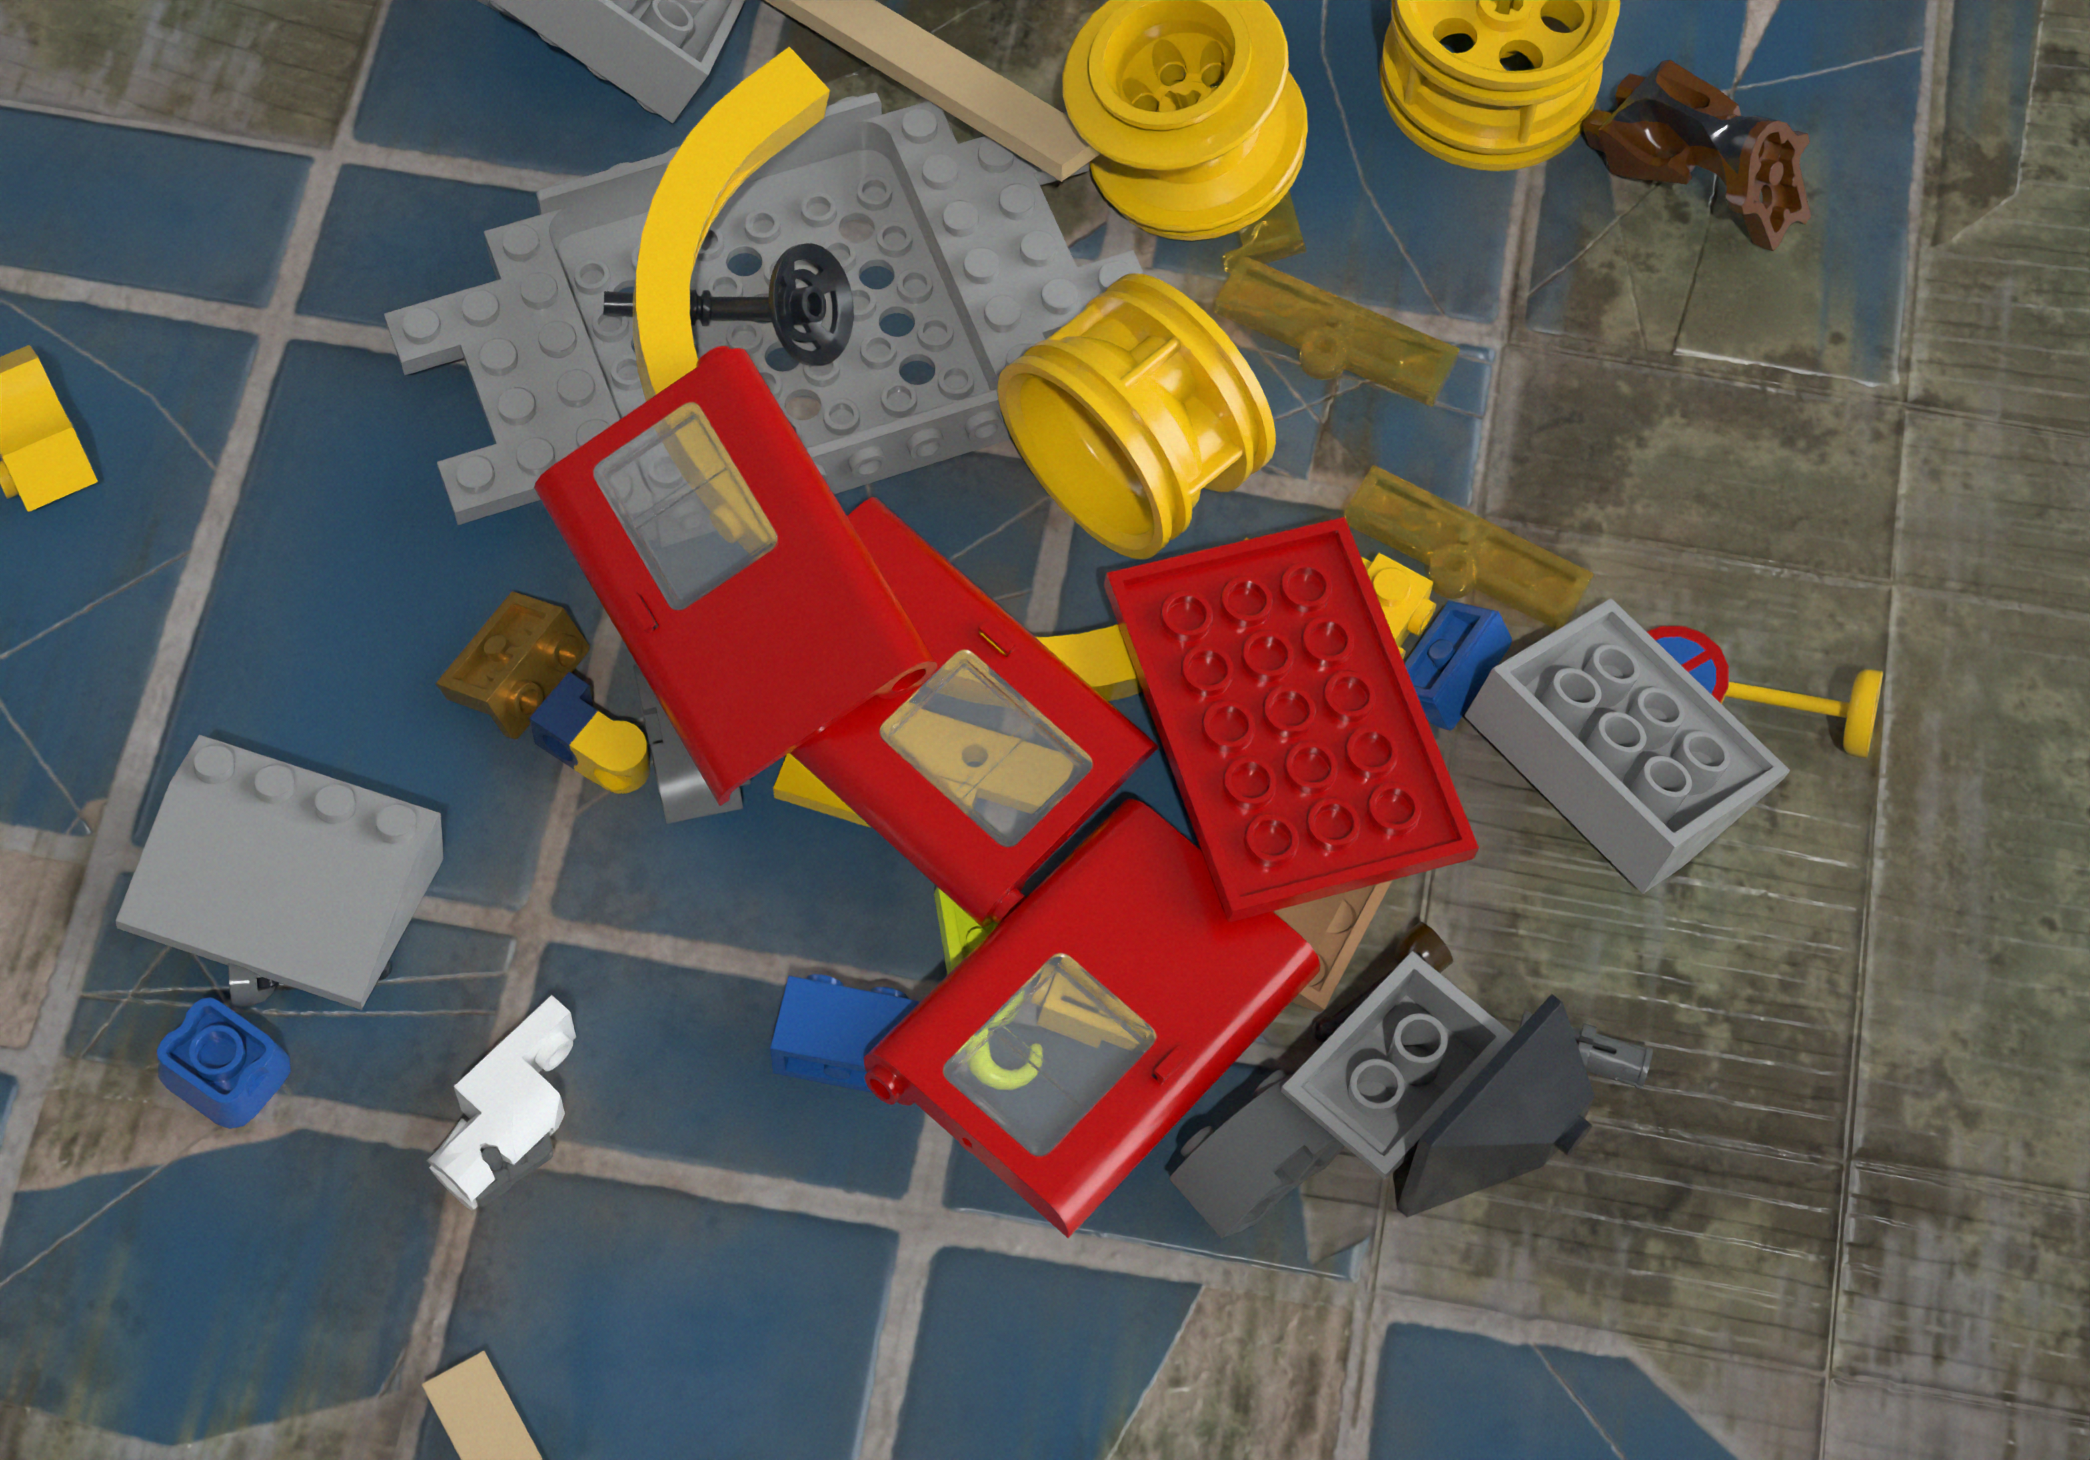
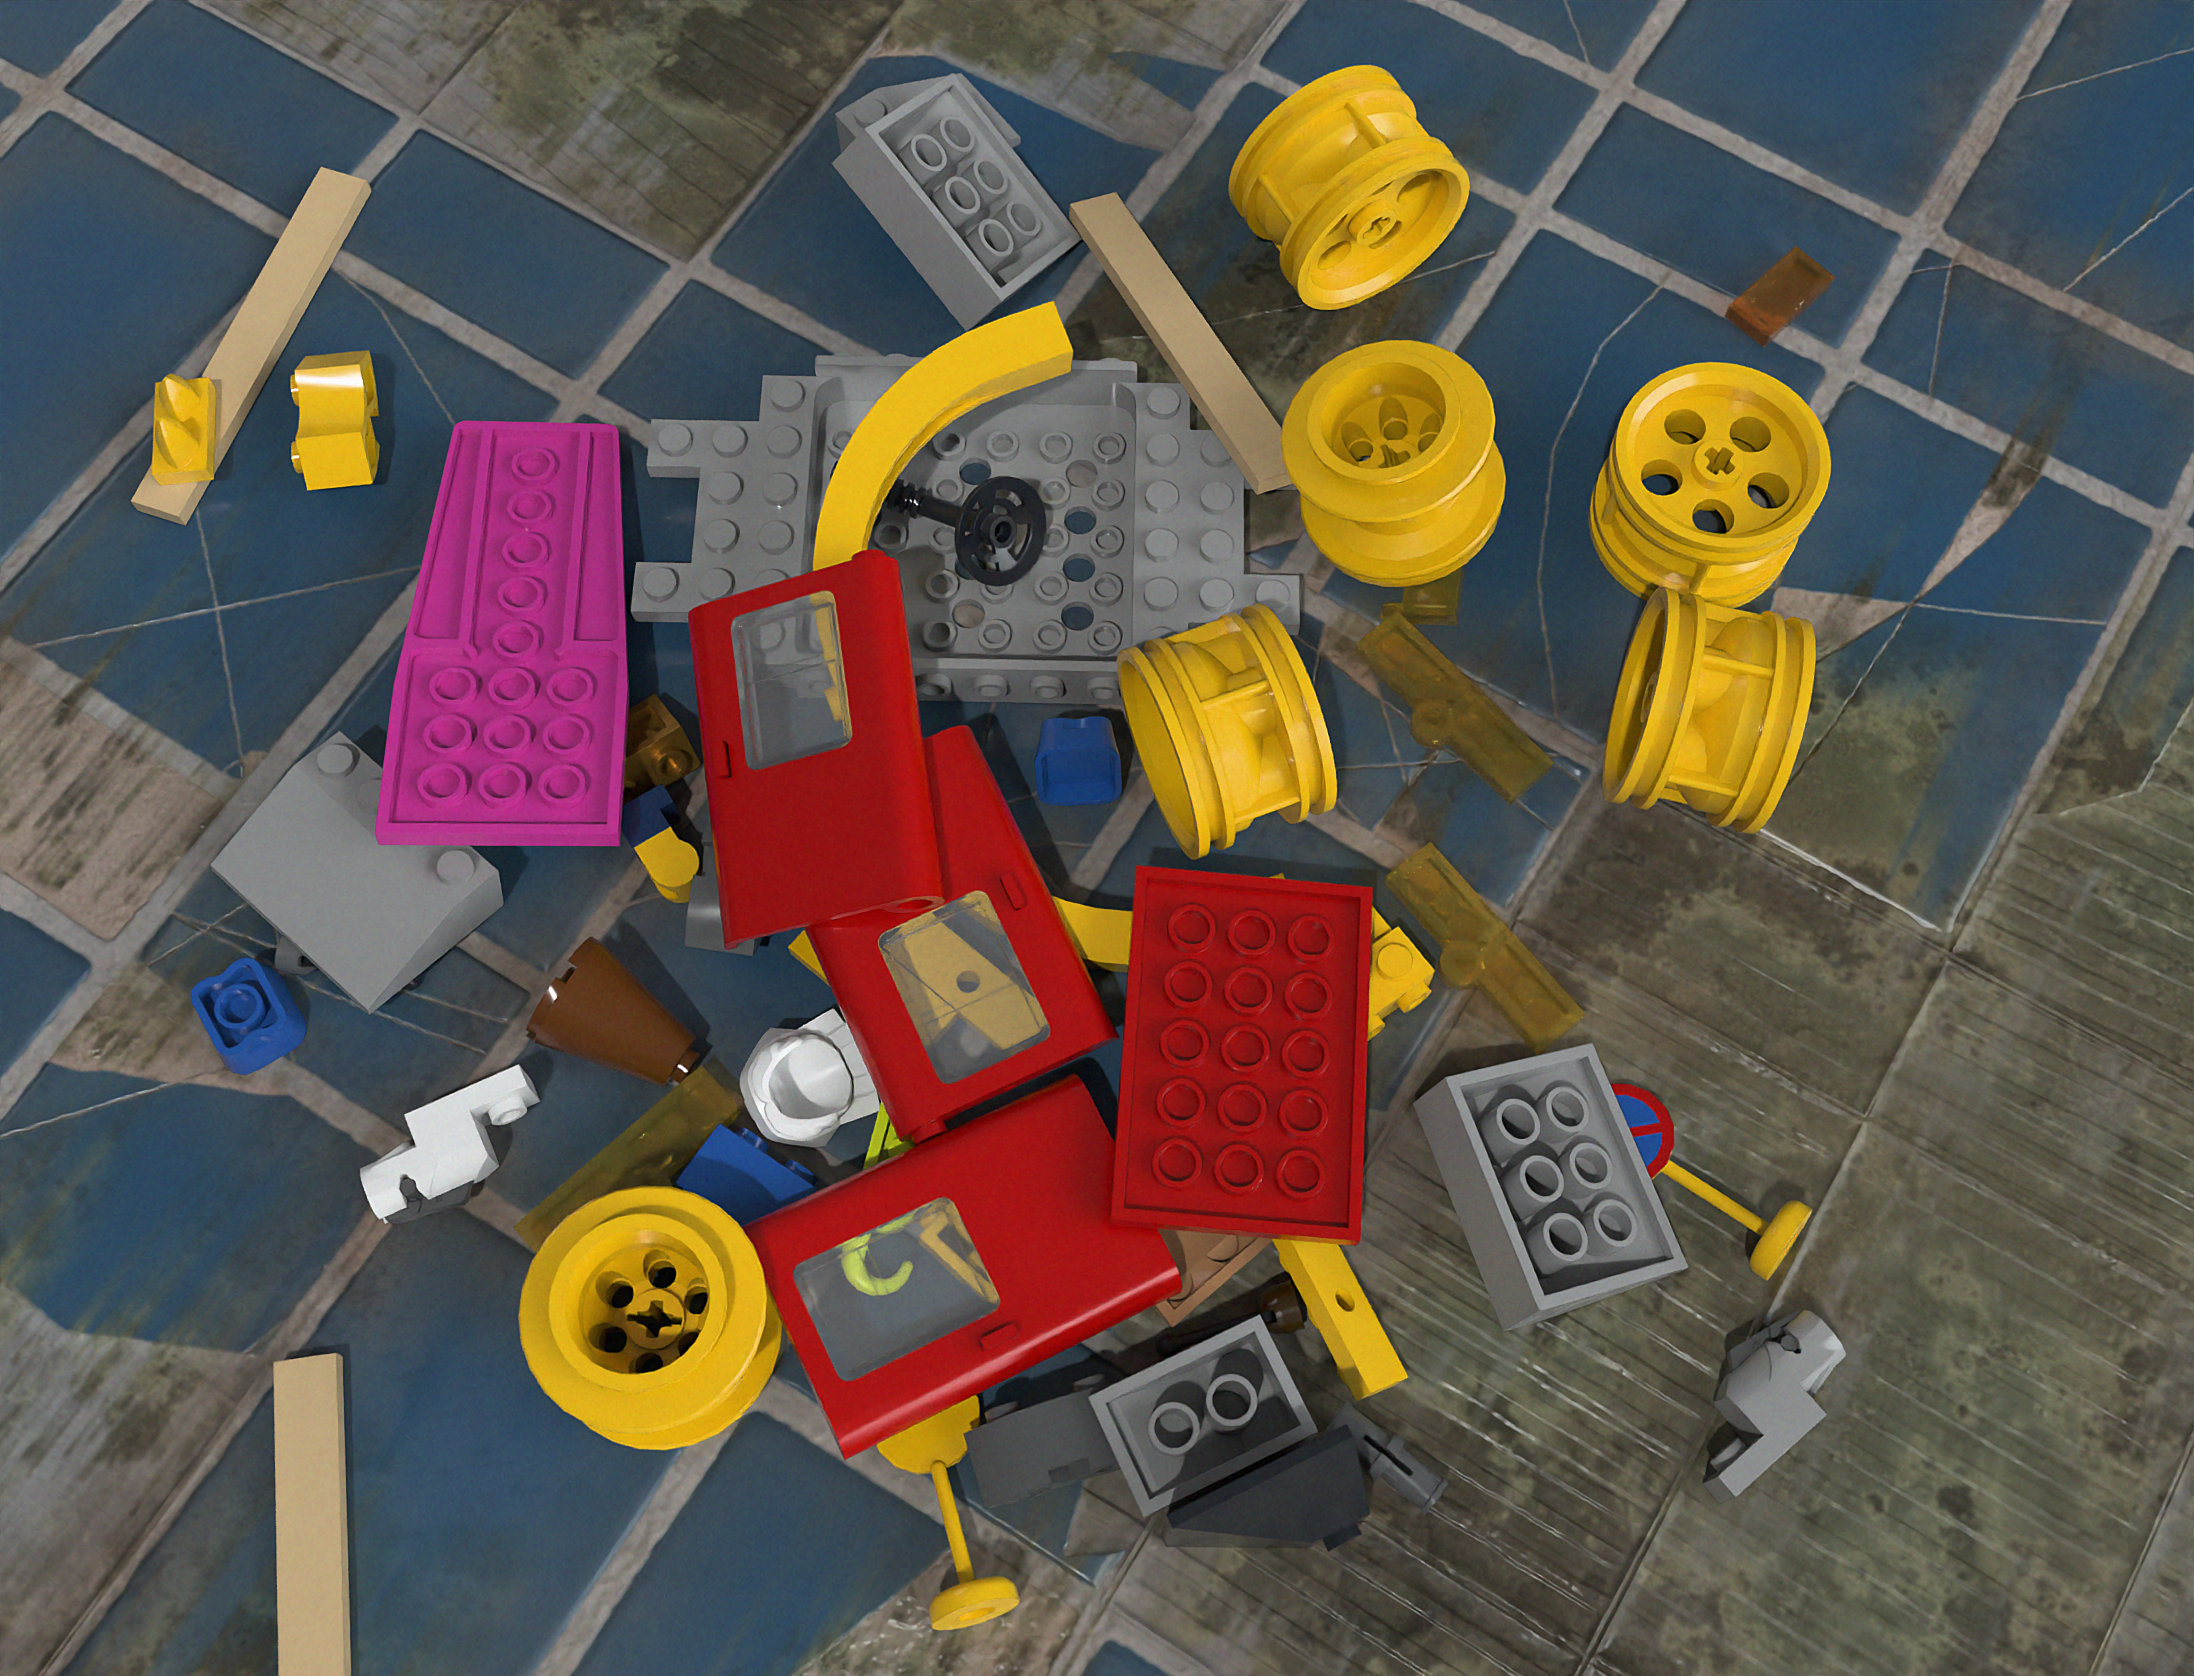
camera: 25 degrees right, 5 degrees up
(351, 584) = (515, 648): none -> dark pink wing
(628, 921) = (612, 1020): none -> reddish brown cone
(709, 1065) = (641, 1154): none -> clear yellow hinge
(777, 1241) = (624, 1244): none -> yellow wheel
(856, 908) = (807, 1082): none -> white hair
(992, 505) = (1077, 762): none -> blue piece
(1140, 1208) = (932, 1449): none -> yellow piece
(1456, 660) = (1426, 1048): blue slope -> none
(1480, 934) = (1342, 1316): none -> yellow tile
(1593, 240) = (1709, 709): none -> yellow wheel
(1665, 135) = (1869, 651): reddish brown hips -> none
(1915, 858) = (1771, 1397): none -> light grey plate

